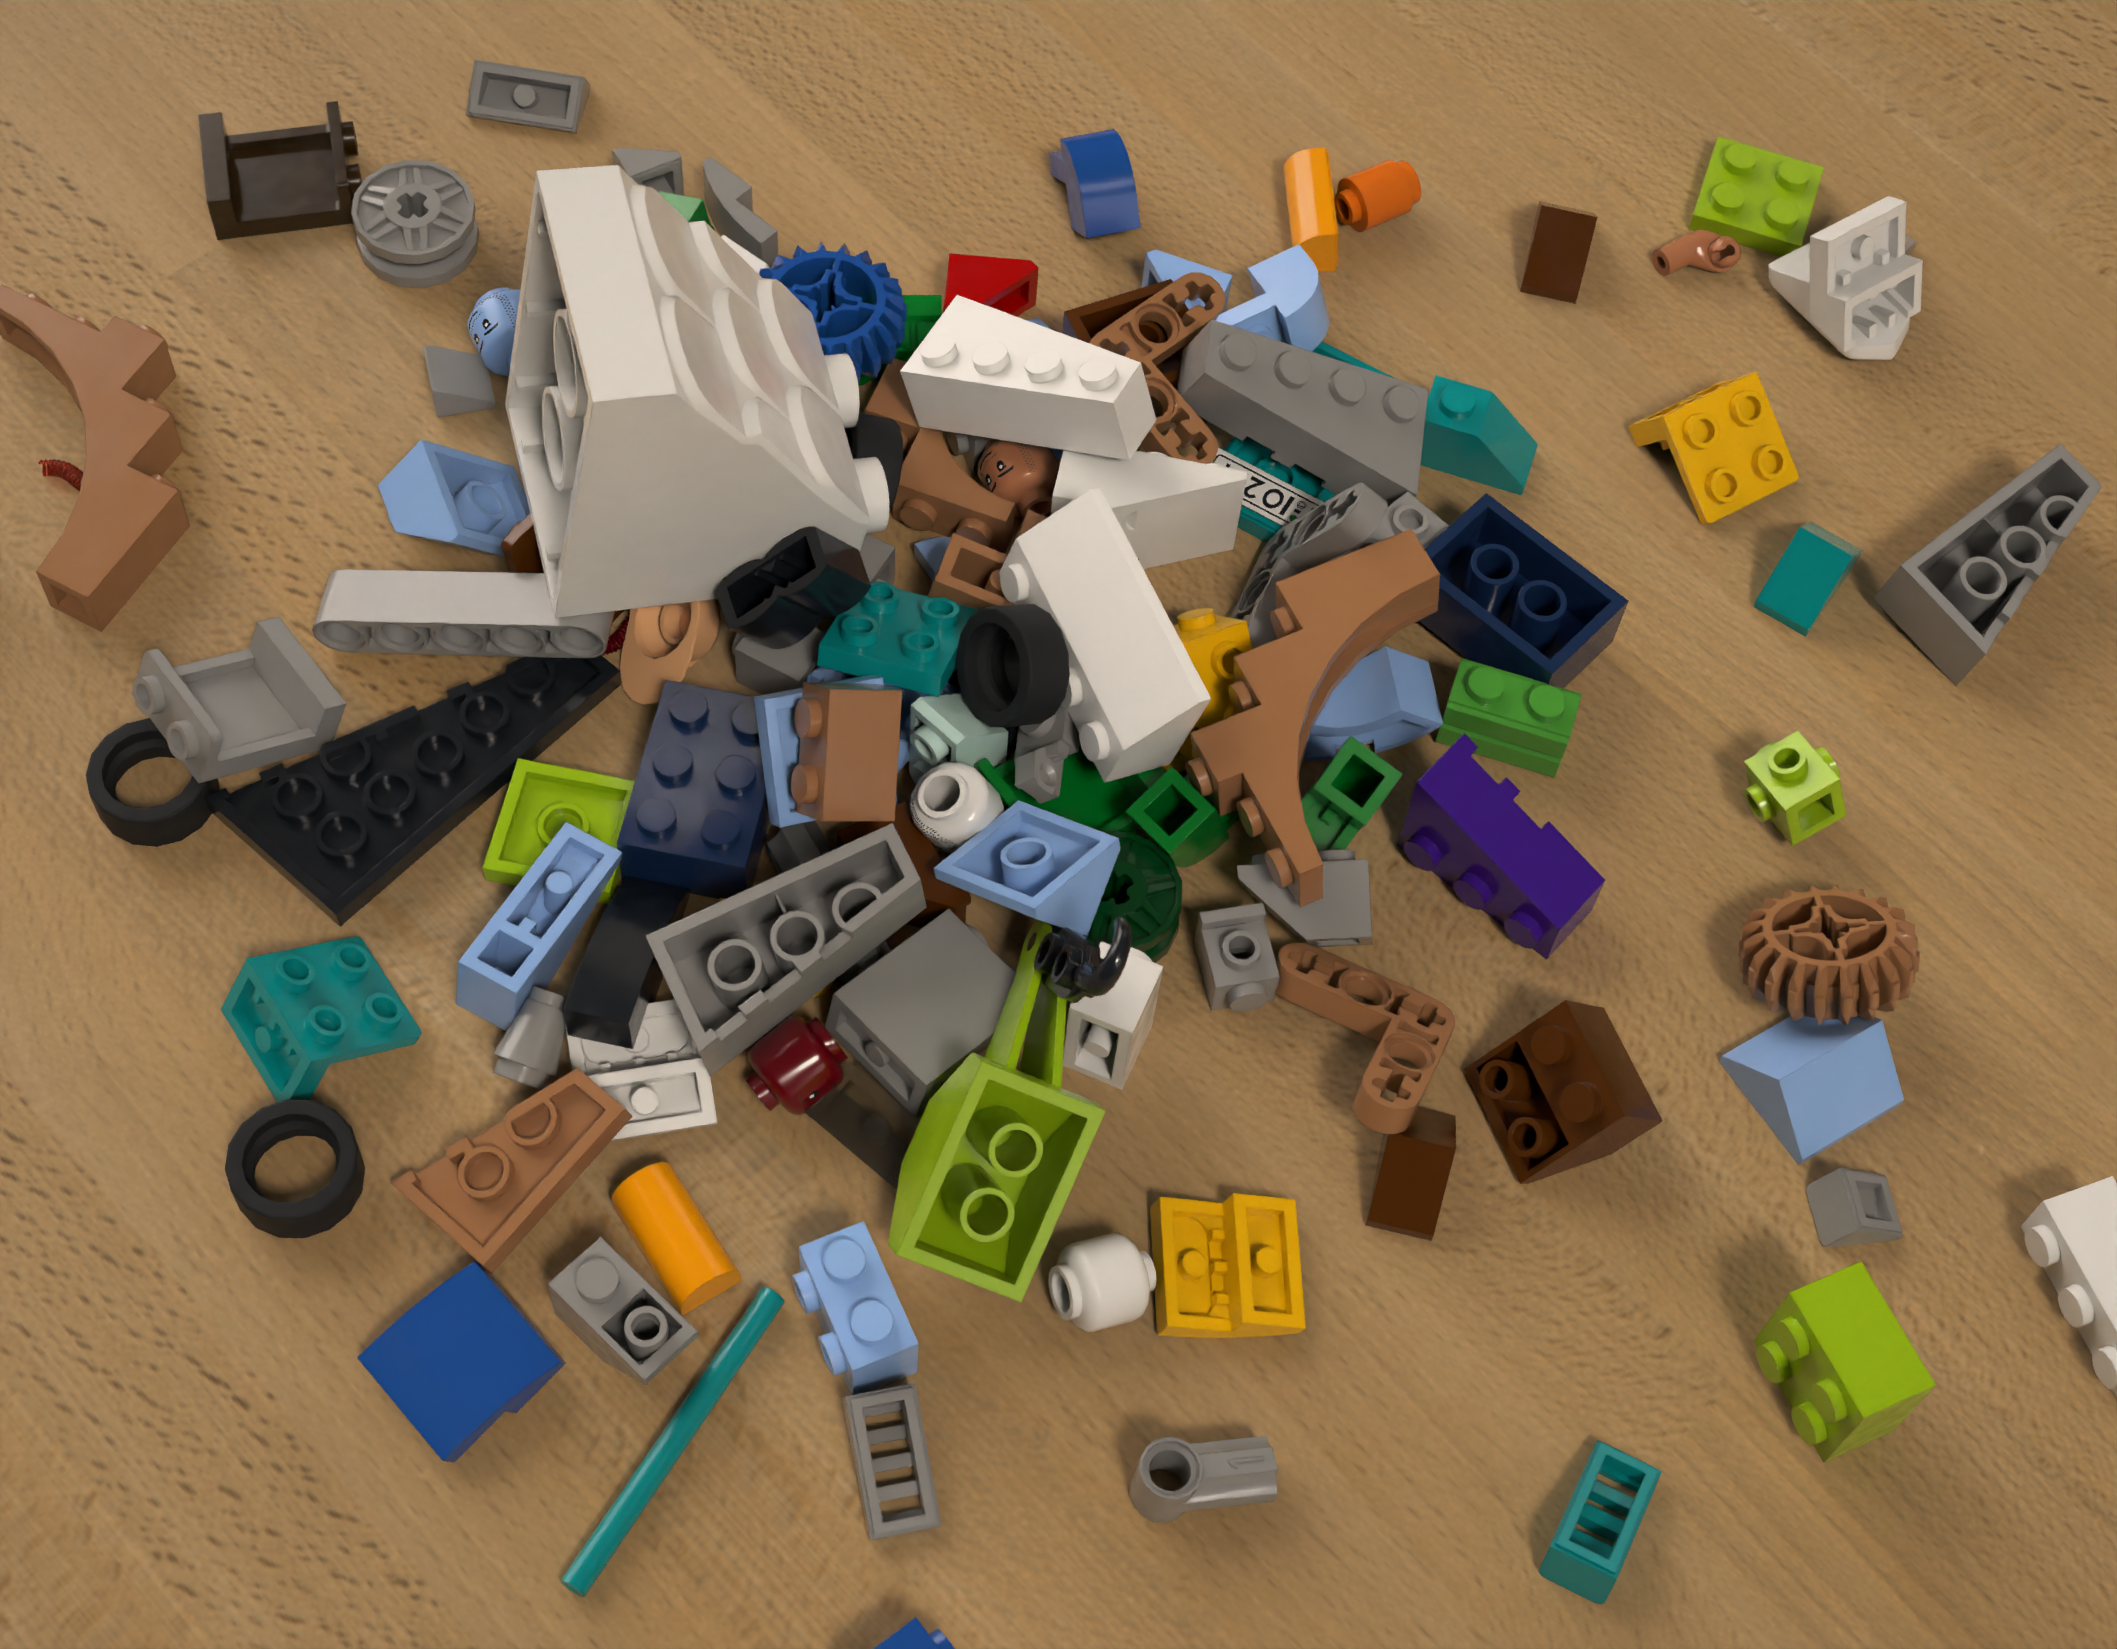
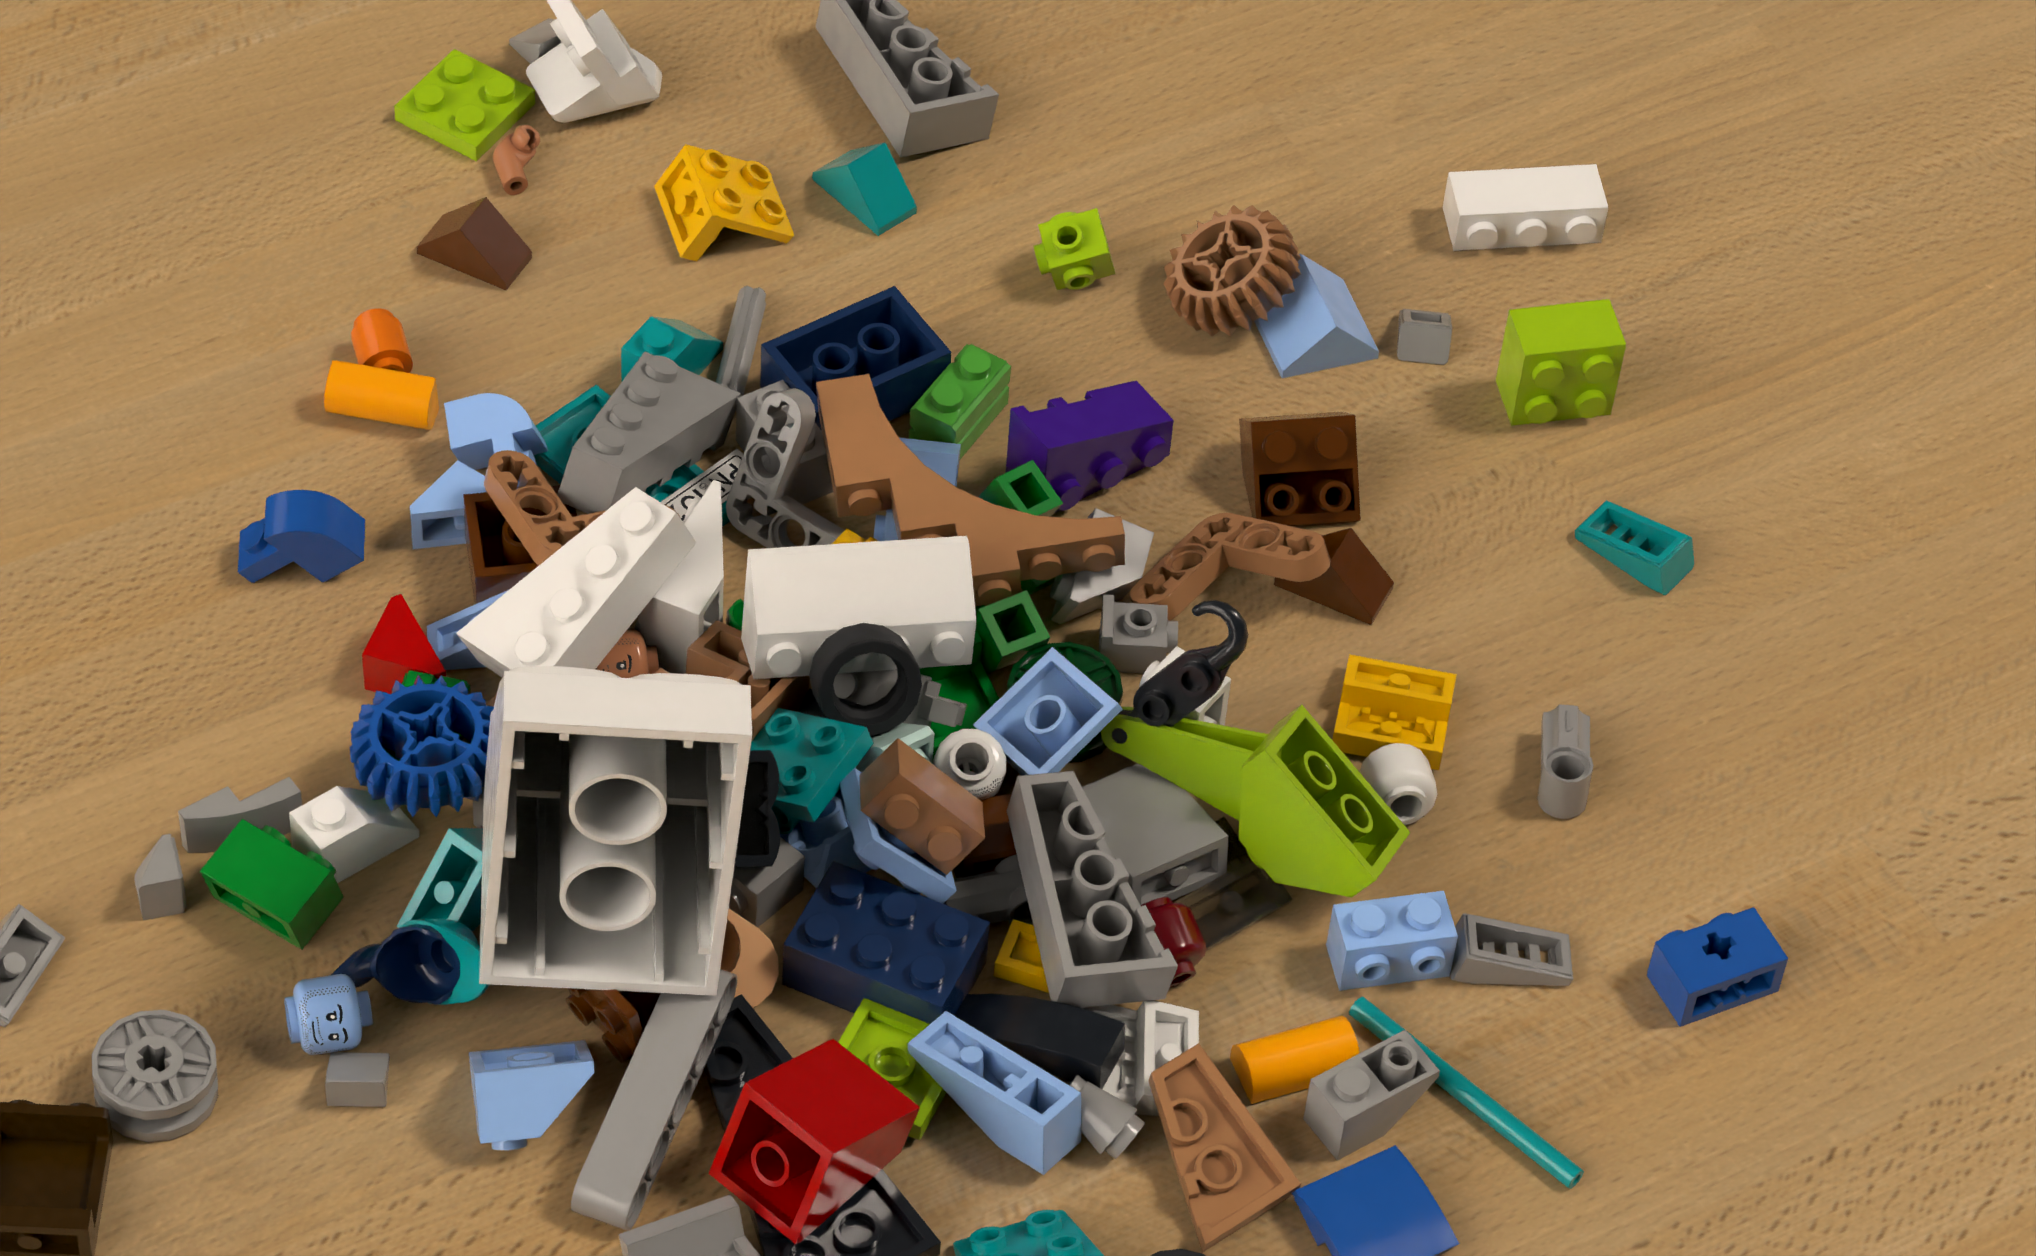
camera: 75 degrees left, 10 degrees down
(424, 756) = (811, 1137): none -> red slope
(1526, 502) = (742, 339): none -> light grey axle

